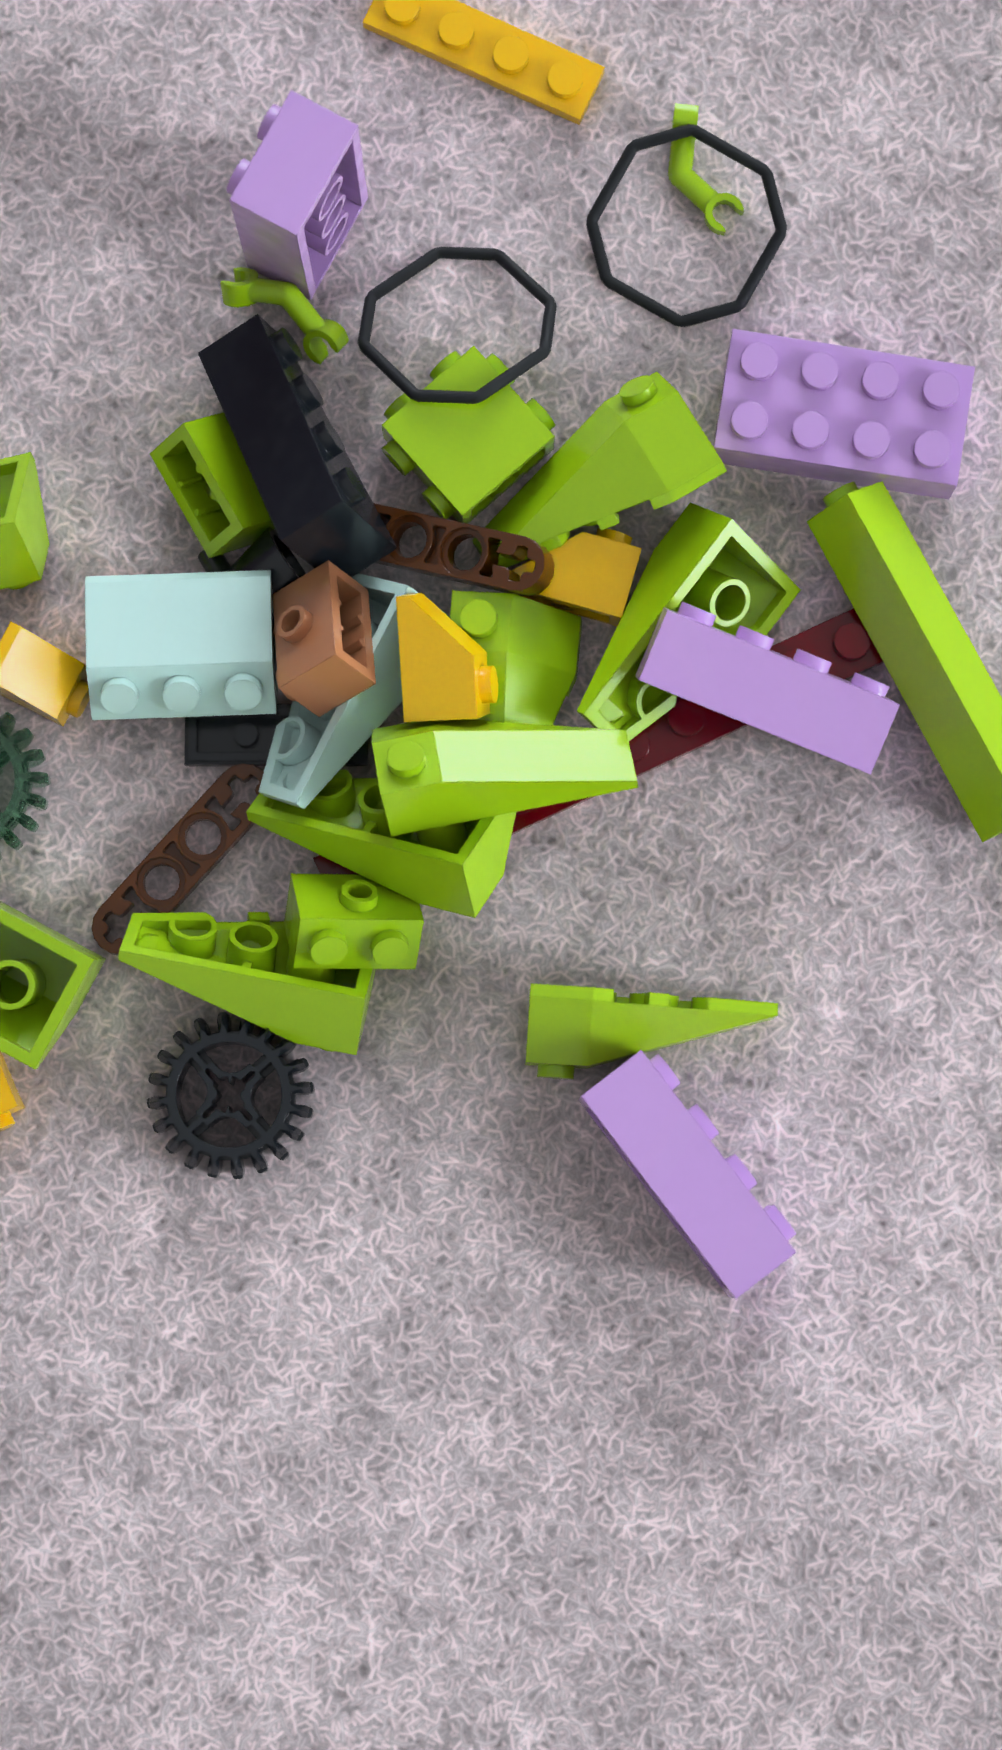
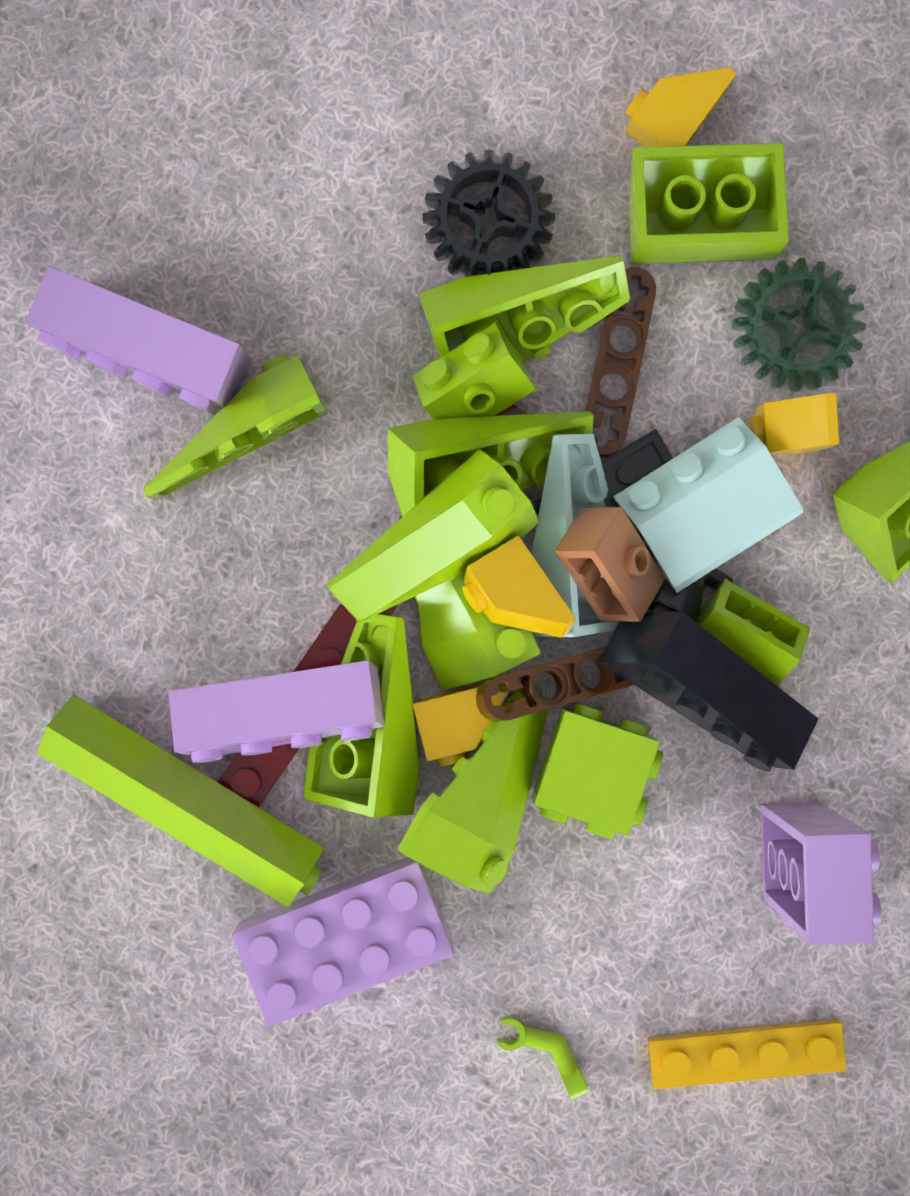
camera: 150 degrees right, 5 degrees up
(251, 289) = (807, 786): lime arm -> none
(496, 384) = (596, 817): black piece -> none
(760, 267) = (593, 1052): black piece -> none

